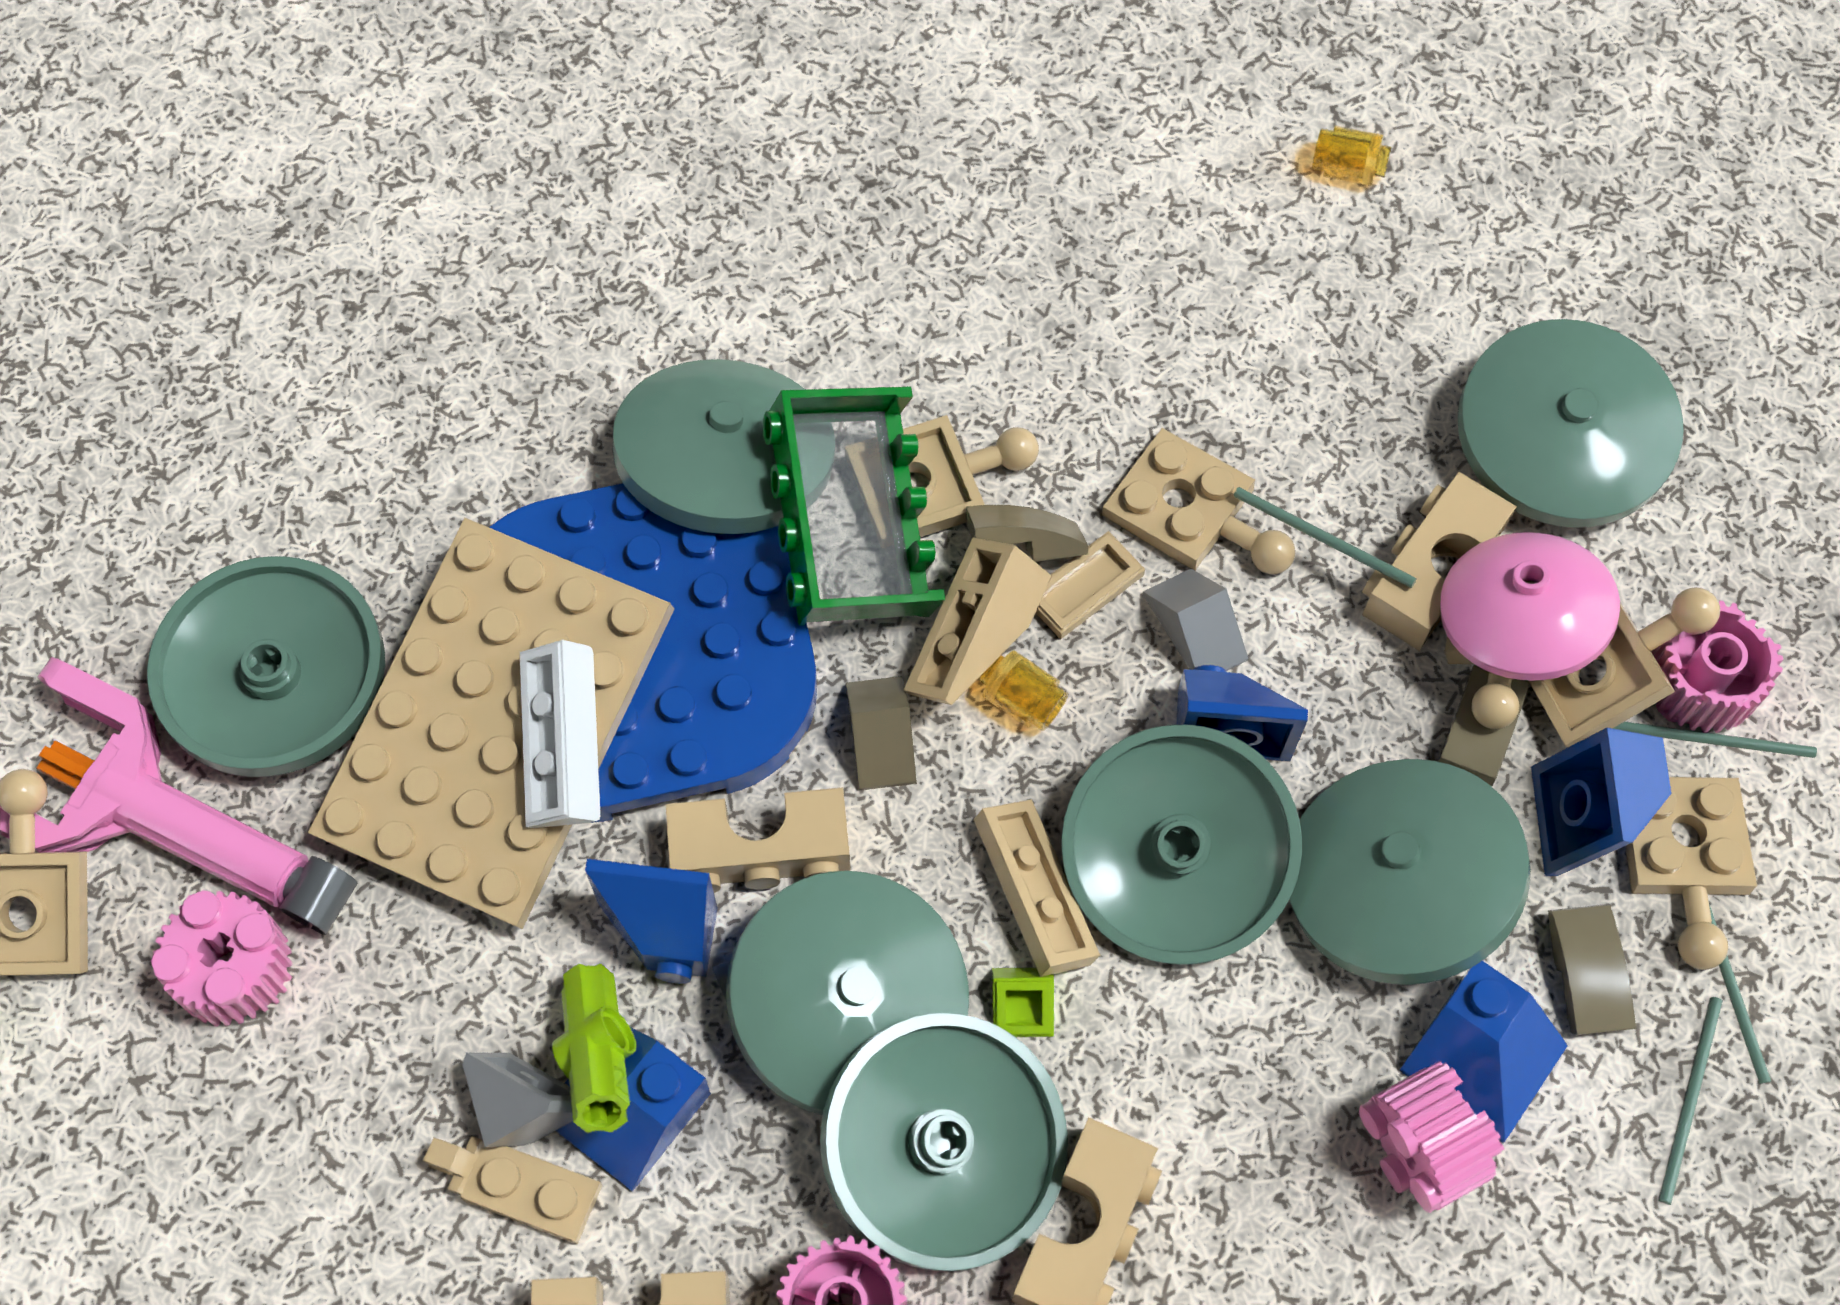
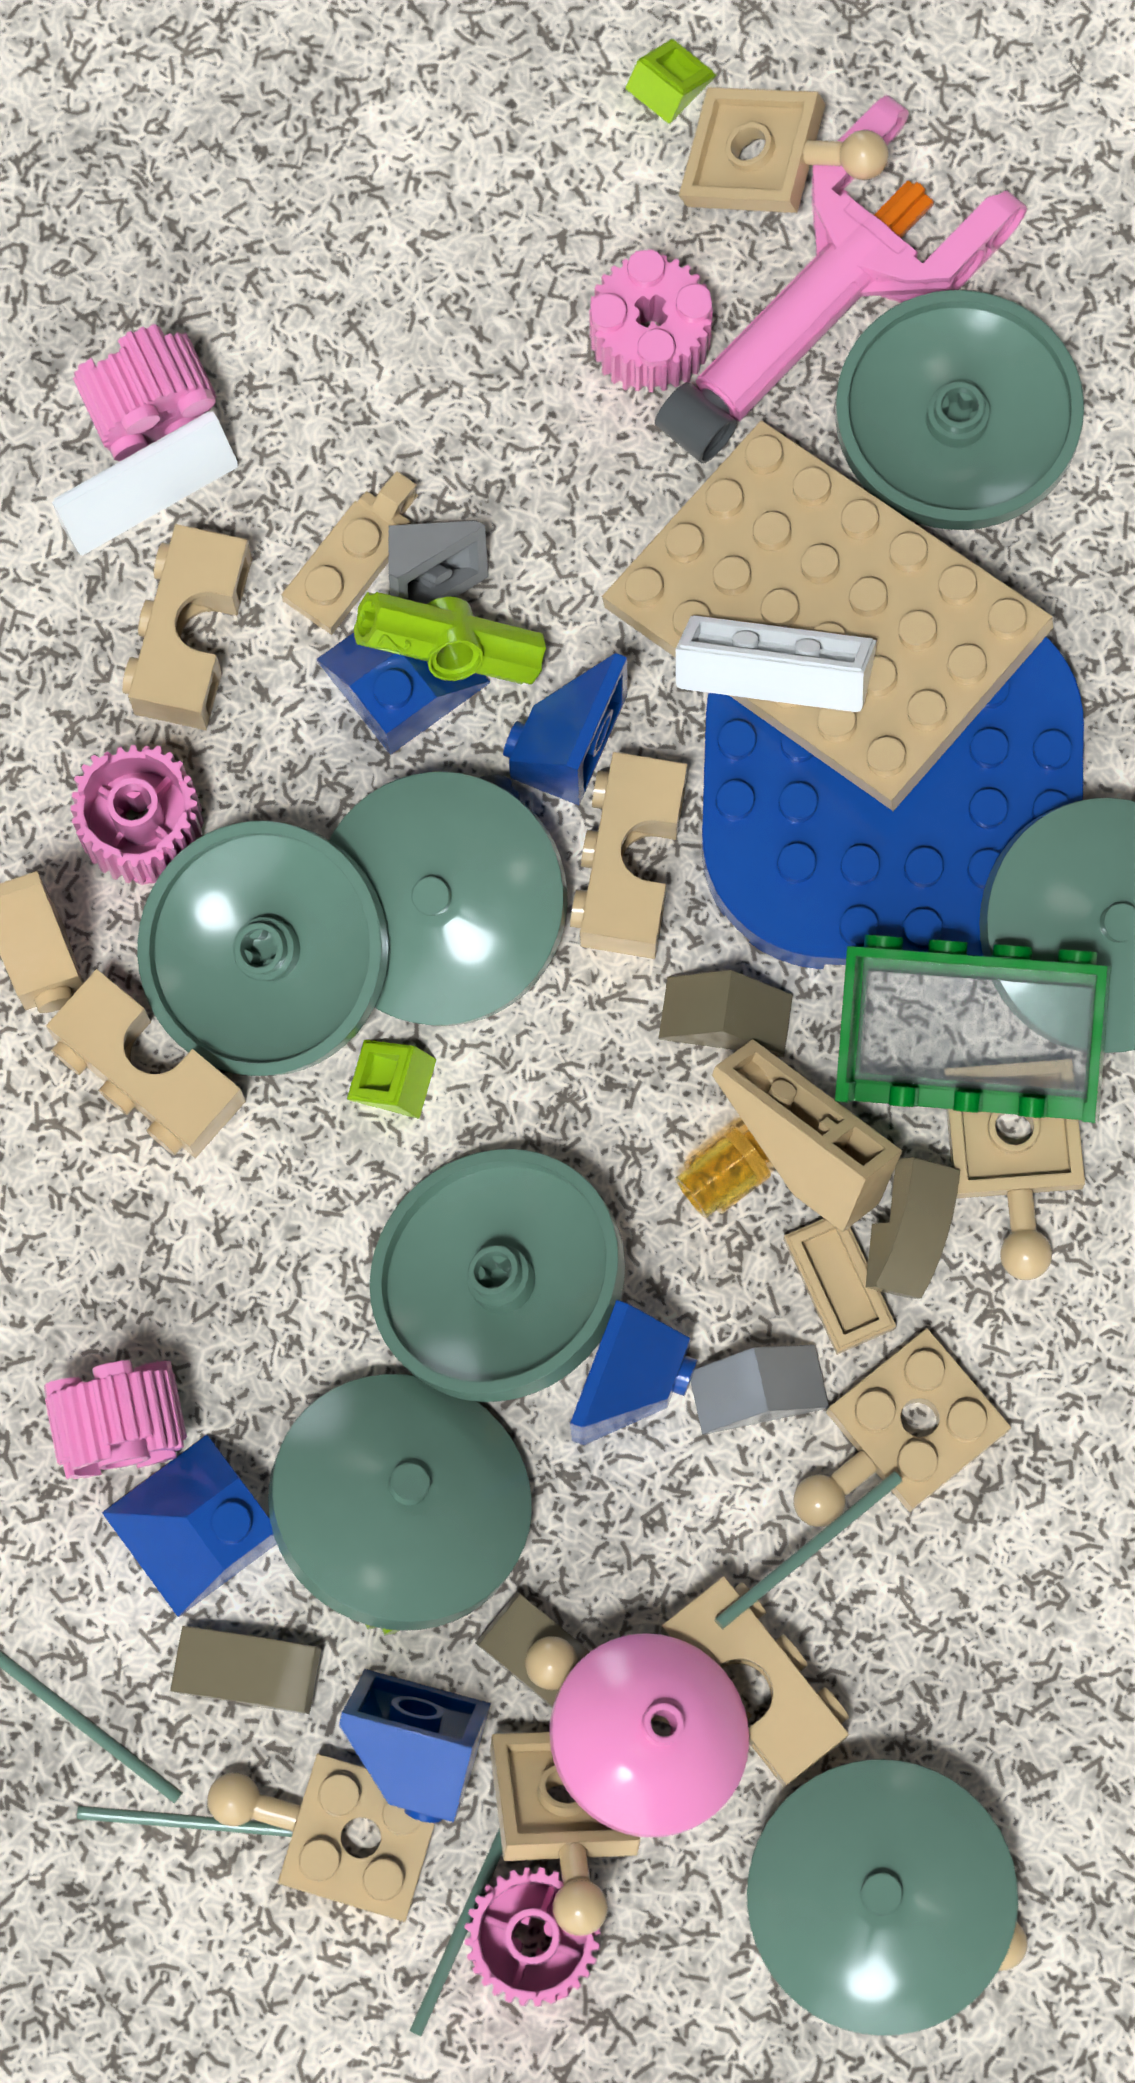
camera: 110 degrees right, 10 degrees up
(1036, 887) = (500, 1118): tan plate -> none

